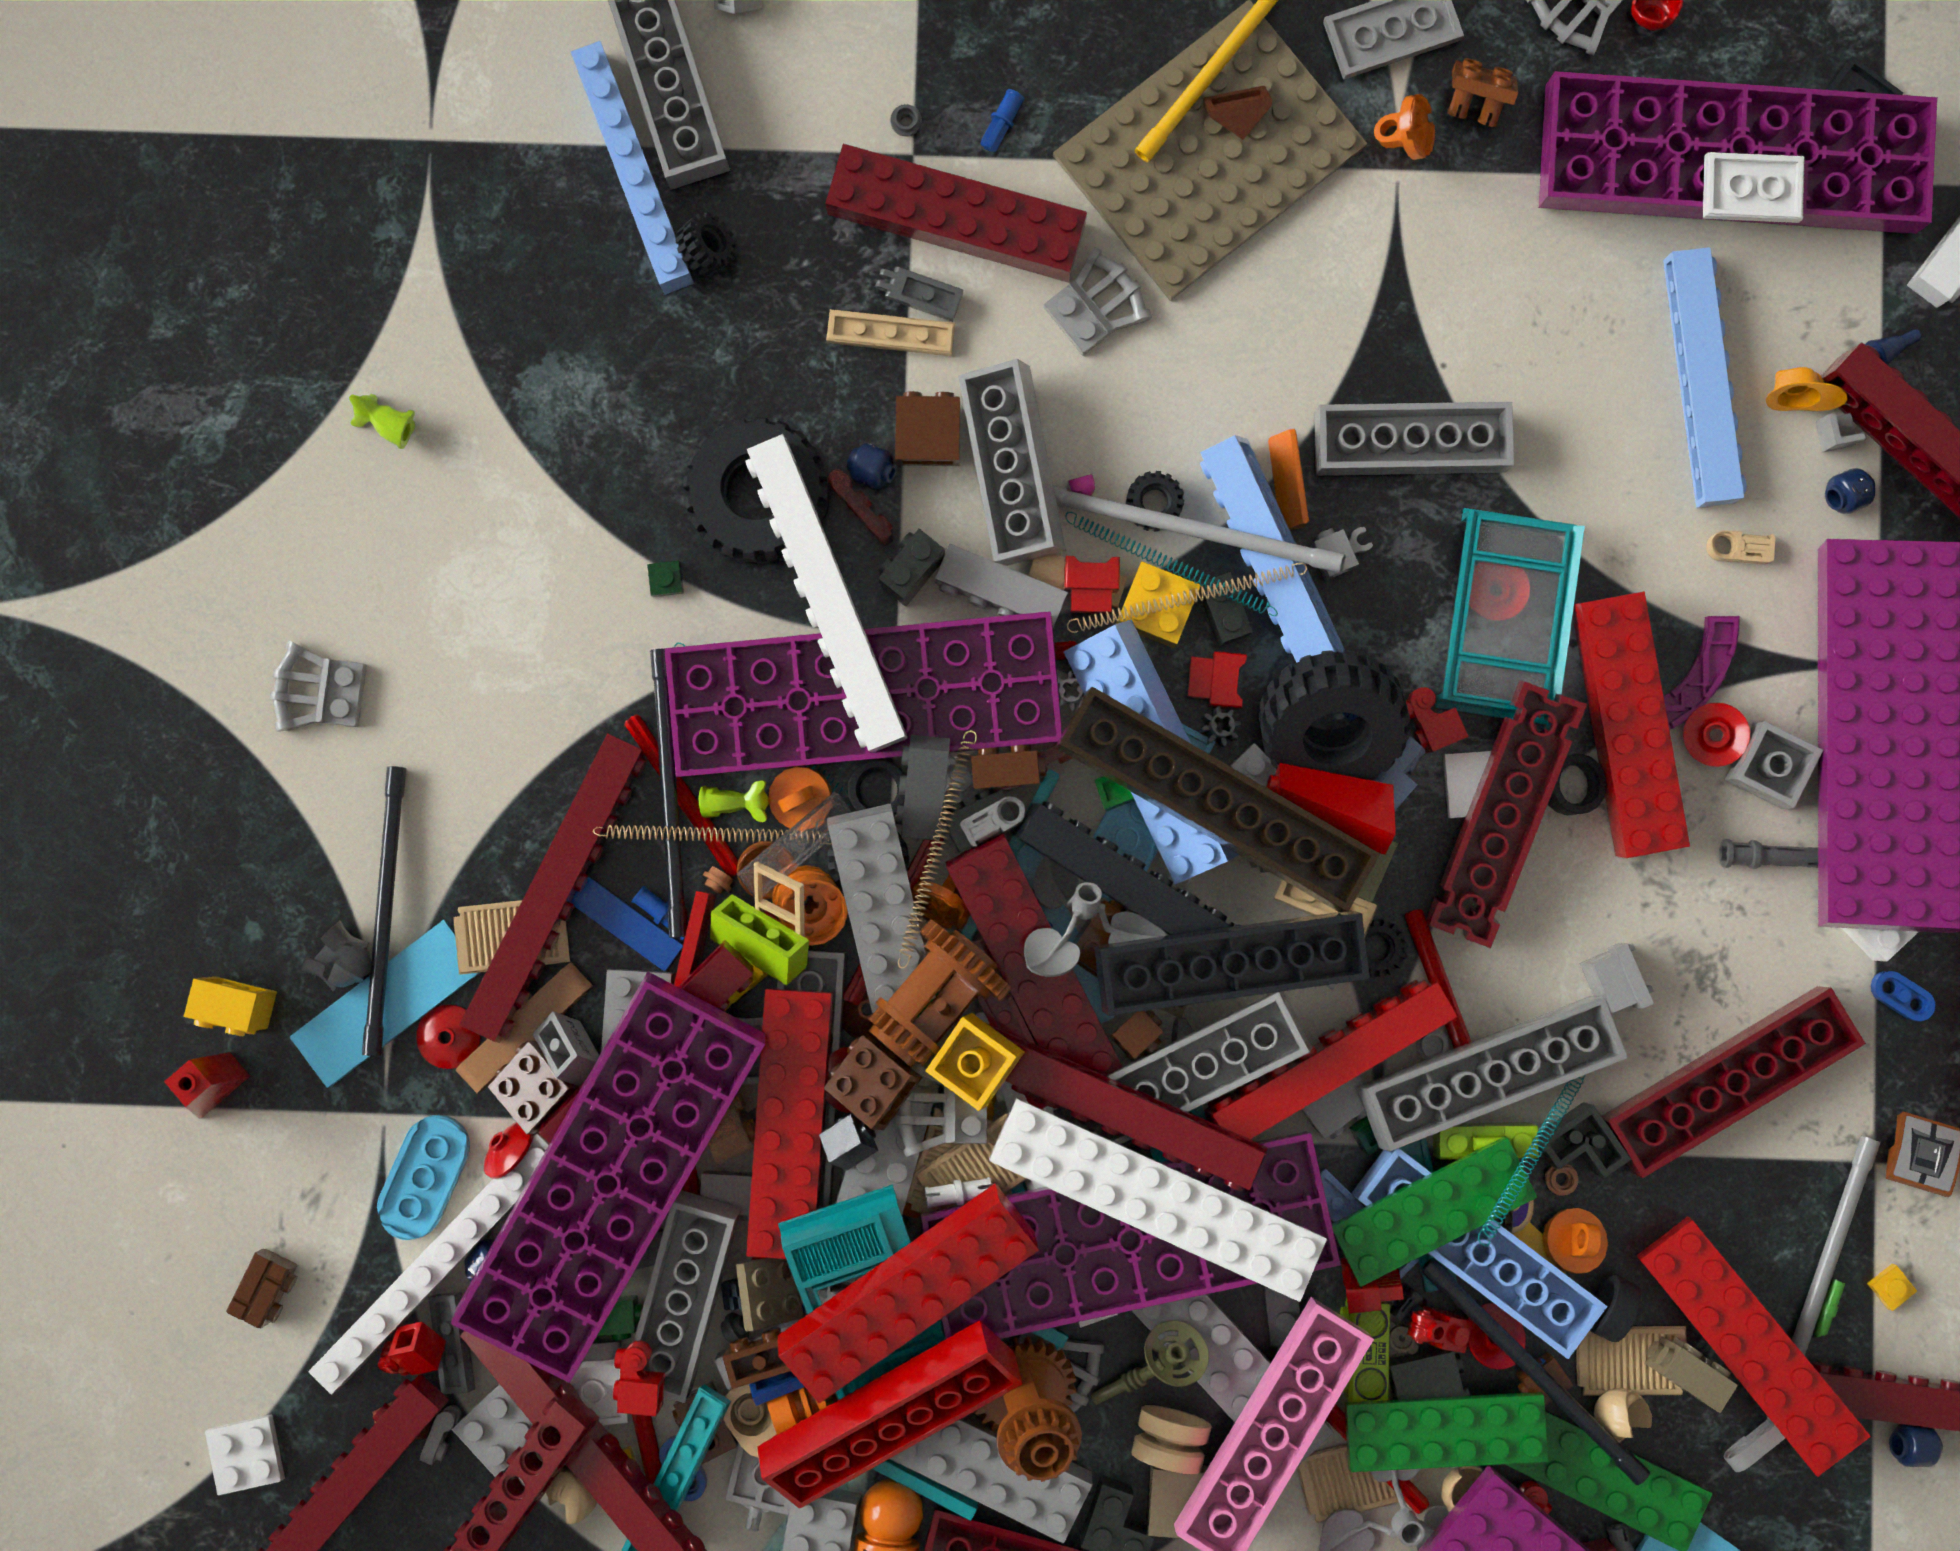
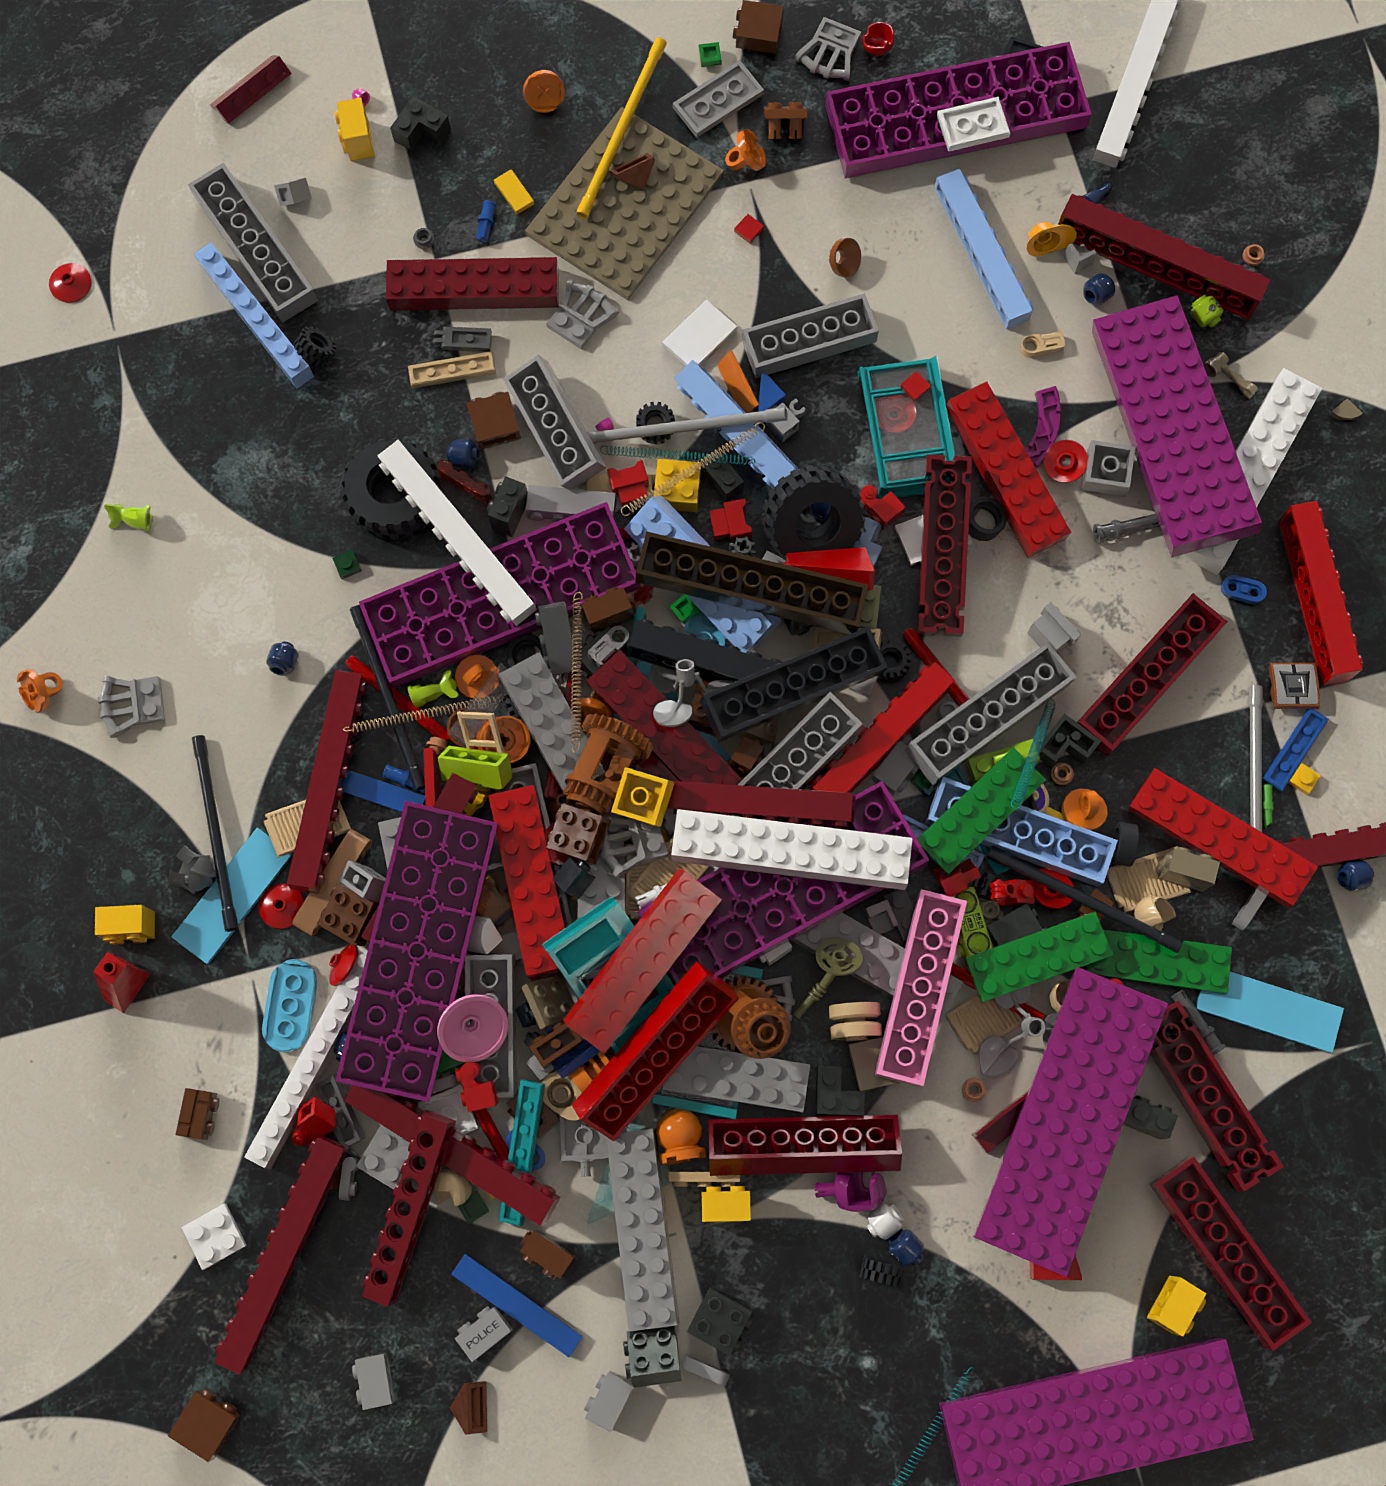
camera: 20 degrees left, 10 degrees down
(190, 635) = (34, 690): none -> orange tile
(392, 48) = (70, 290): none -> red dish
(539, 690) = (282, 658): none -> dark blue head
(594, 1526) = (473, 1208): none -> dark green plate
(653, 1307) = (481, 1036): none -> bright pink dish
(706, 1180) = (483, 936): none -> white brick
(1055, 86) = (513, 192): none -> yellow tile
(1251, 1304) = (881, 917): none -> light grey panel
(1256, 387) = (699, 334): none -> white tile
(1327, 511) = (770, 393): none -> blue slope
(1376, 244) = (749, 228): none -> red tile
(1506, 335) = (849, 257): none -> dark orange piece
(1539, 564) = (915, 386): none -> red tile
(1894, 1242) = (1295, 749): none -> blue tile

